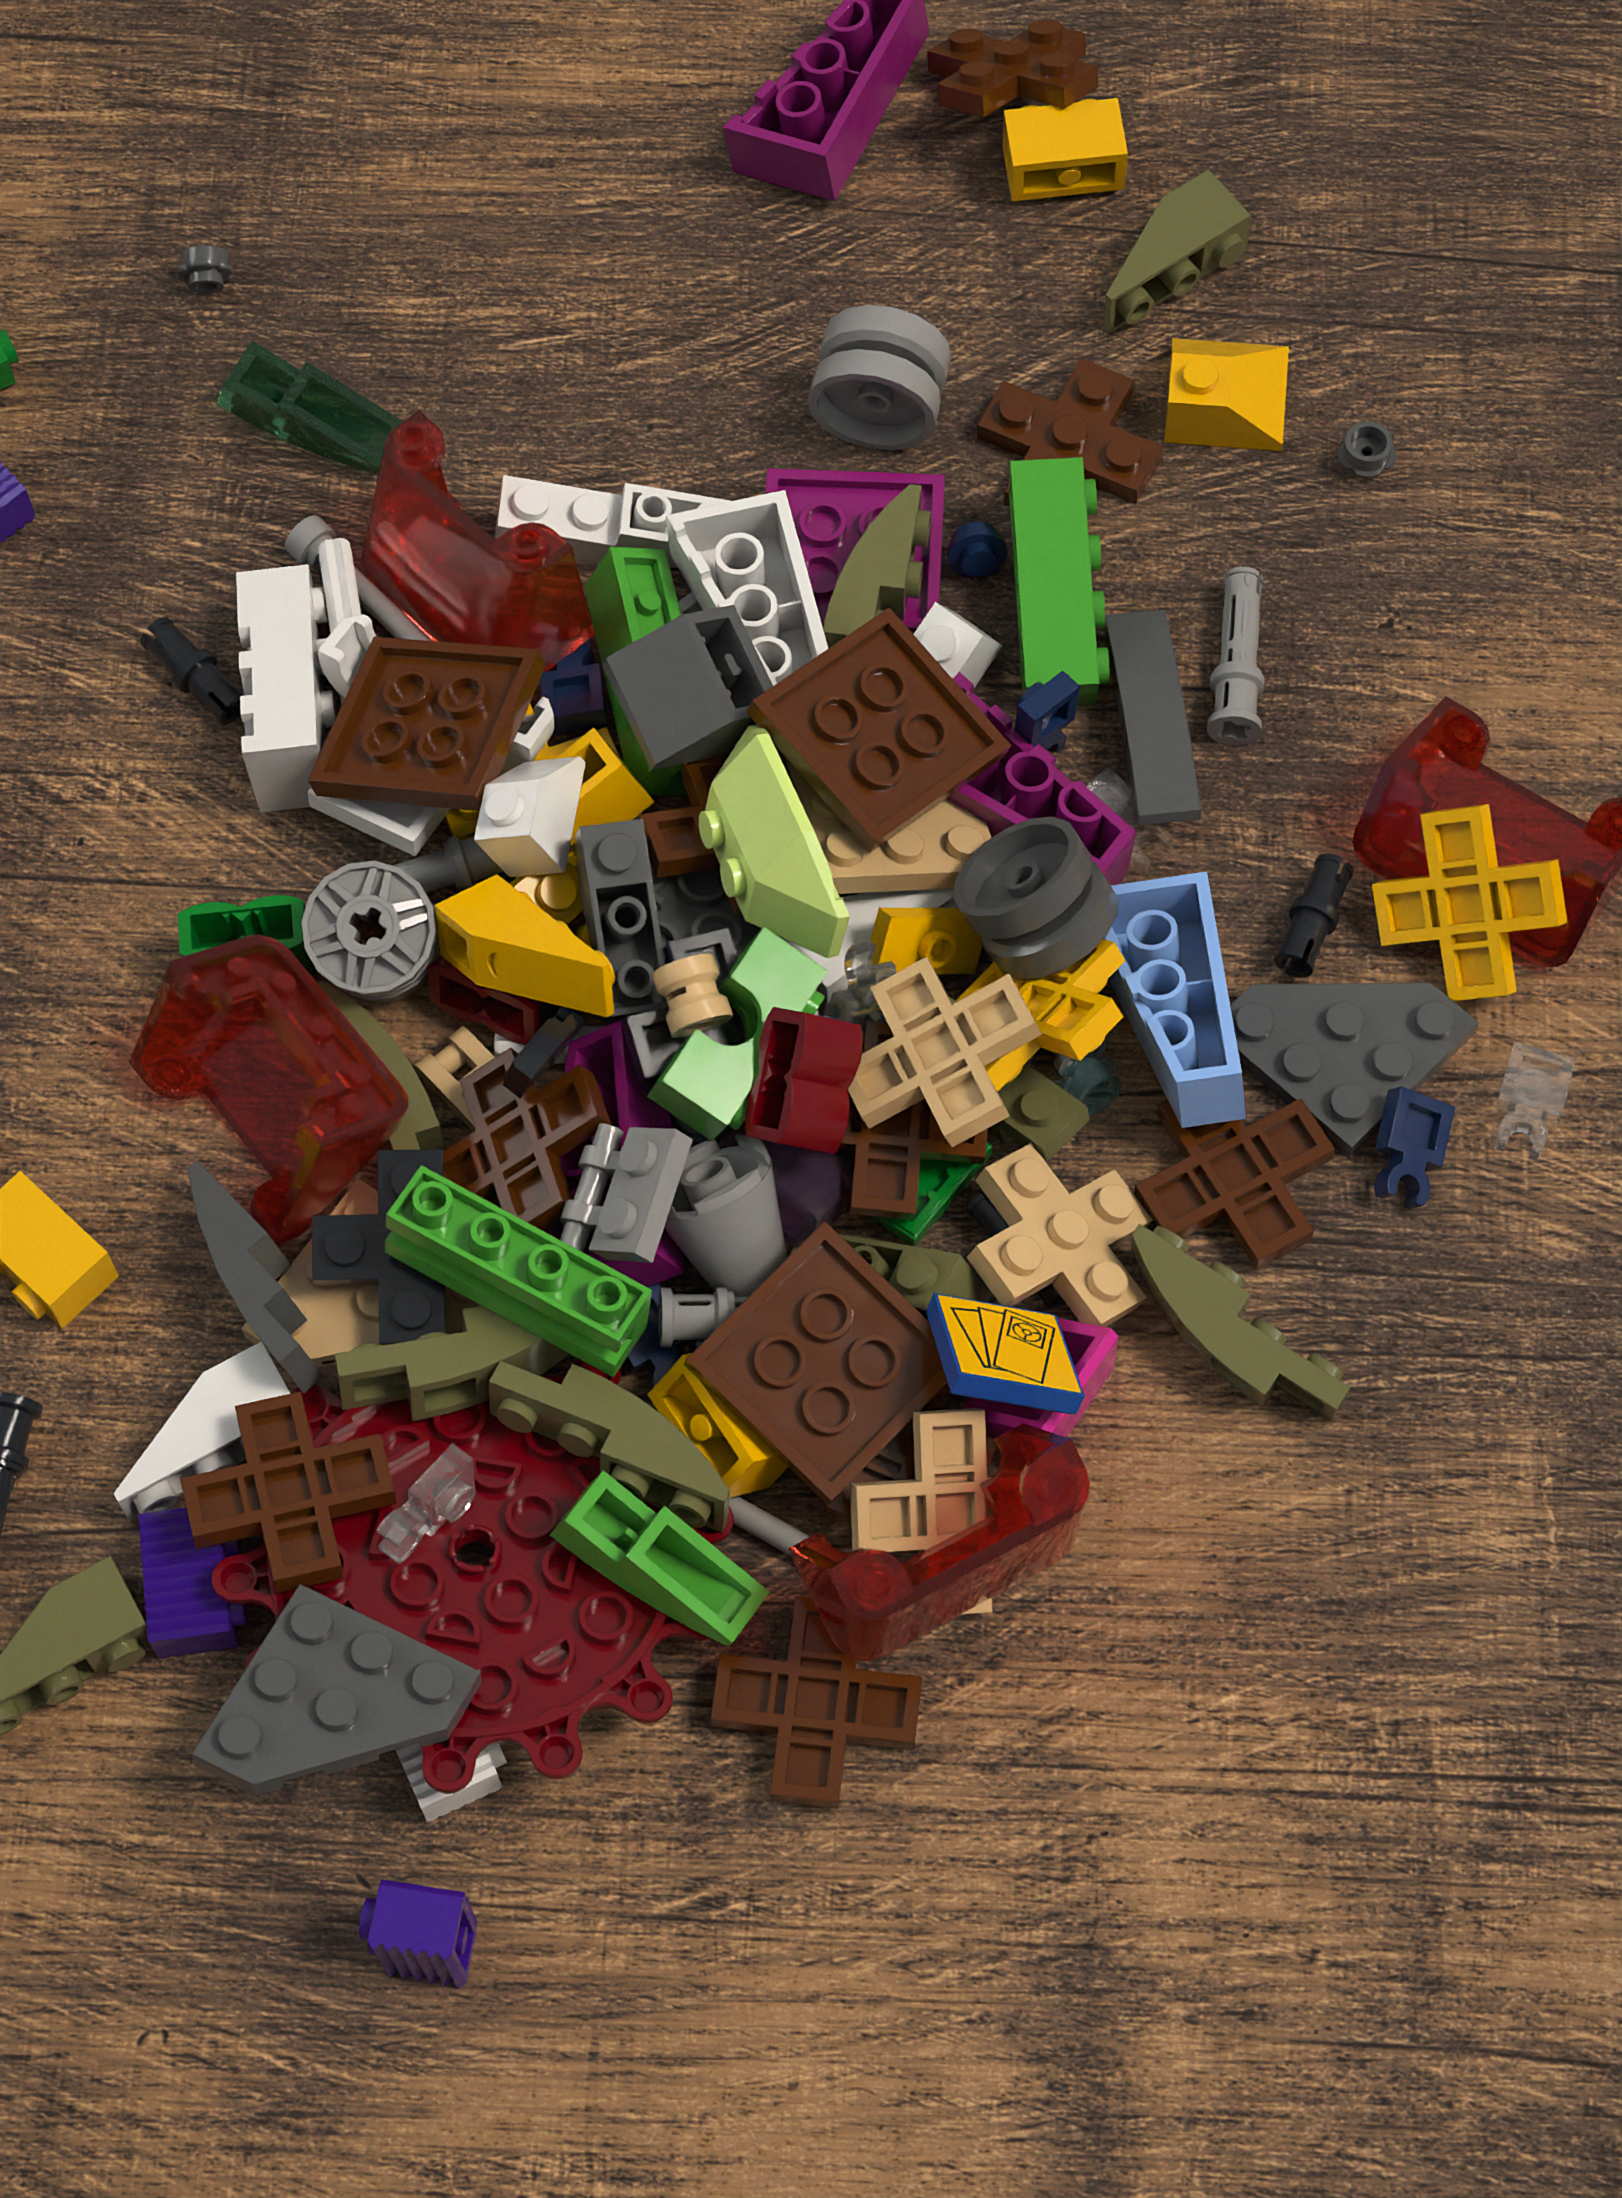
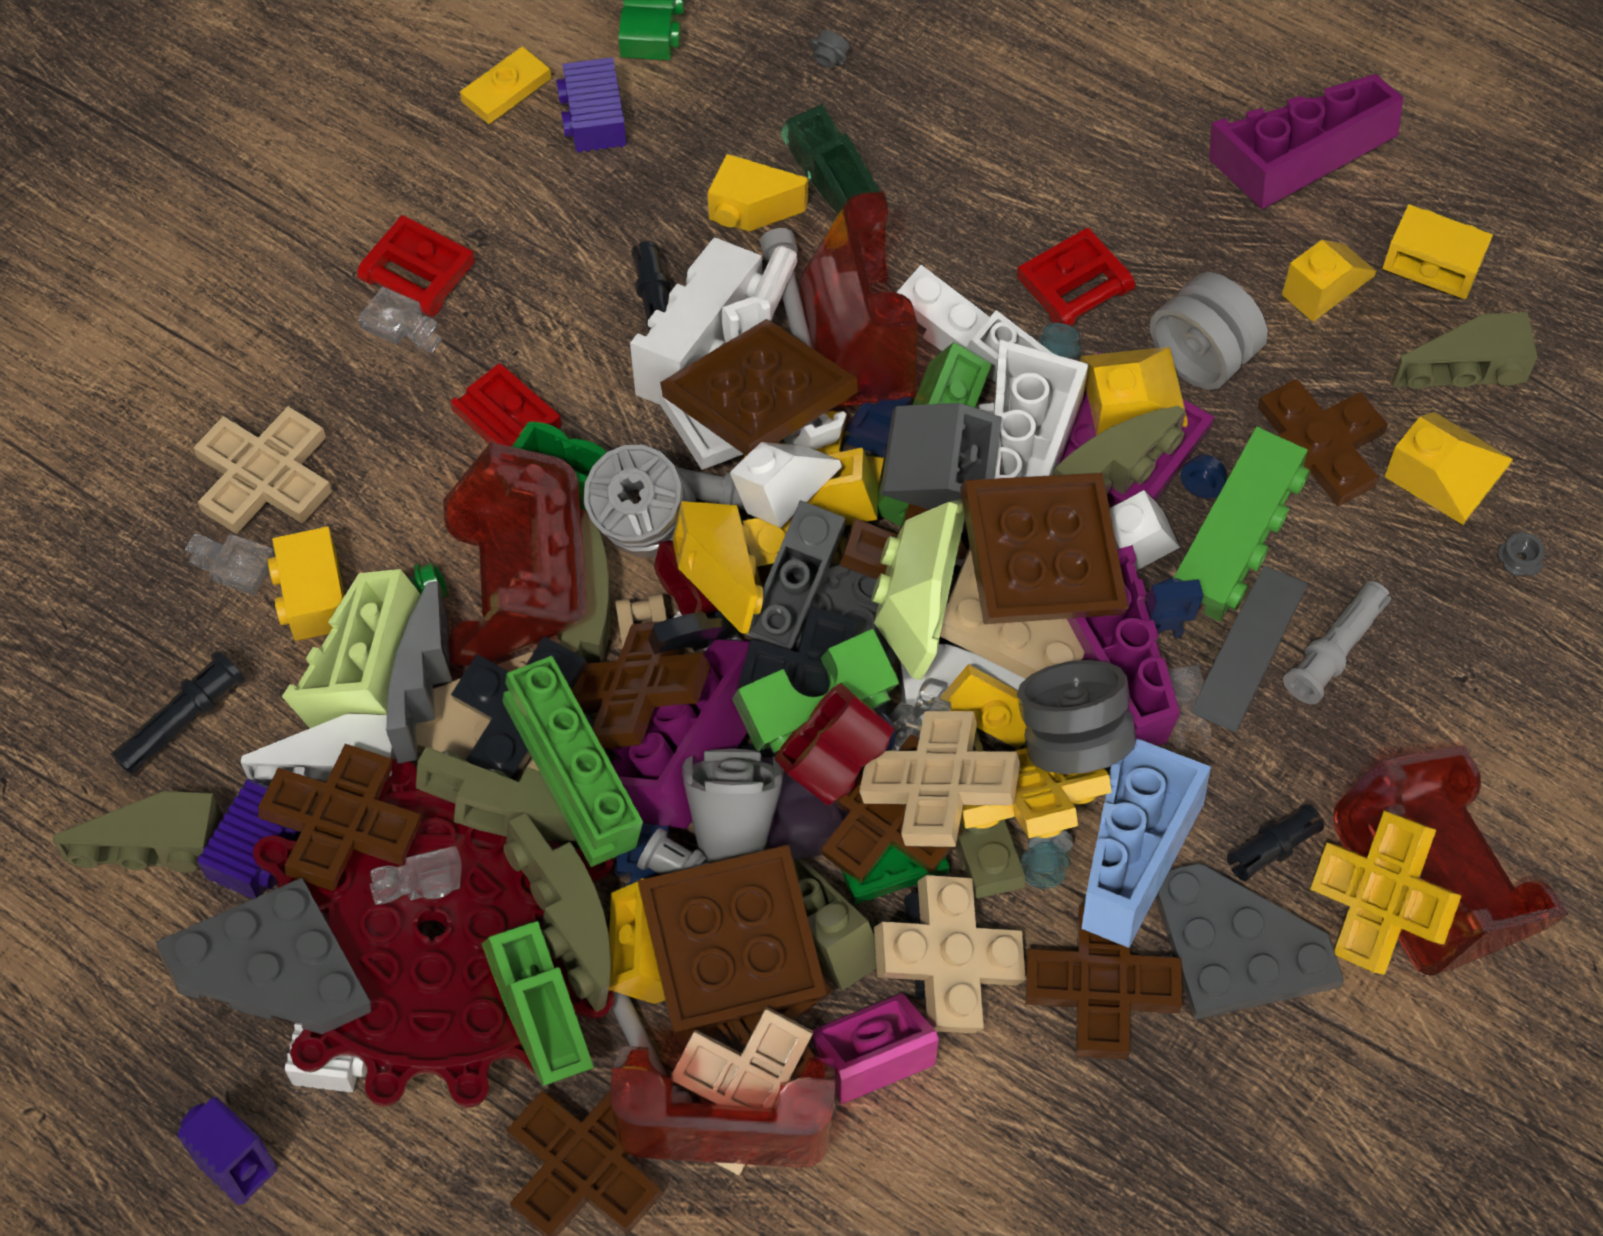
camera: 30 degrees right, 5 degrees down
(123, 918) = (501, 406): none -> red plate
(166, 1295) = (359, 653): none -> yellowish green wedge
(172, 1169) = (428, 573): none -> green plate
(241, 494) = (754, 194): none -> yellow slope
(639, 1195) = (671, 749): light grey plate -> none
(664, 386) = (1067, 268): none -> red plate
(692, 995) = (800, 647): tan wheel -> none
(714, 478) = (1060, 340): none -> clear light blue plate
(834, 491) = (1130, 385): none -> yellow slope
(958, 247) = (1324, 277): none -> yellow slope
(992, 72) = (1452, 190): reddish brown plate -> none
(1004, 1354) = (849, 1004): tile -> none
(1207, 1313) = (1020, 1065): olive slope -> none
(1416, 1139) = (1245, 1031): dark blue plate -> none
(1533, 1092) = (1352, 1049): clear plate -> none

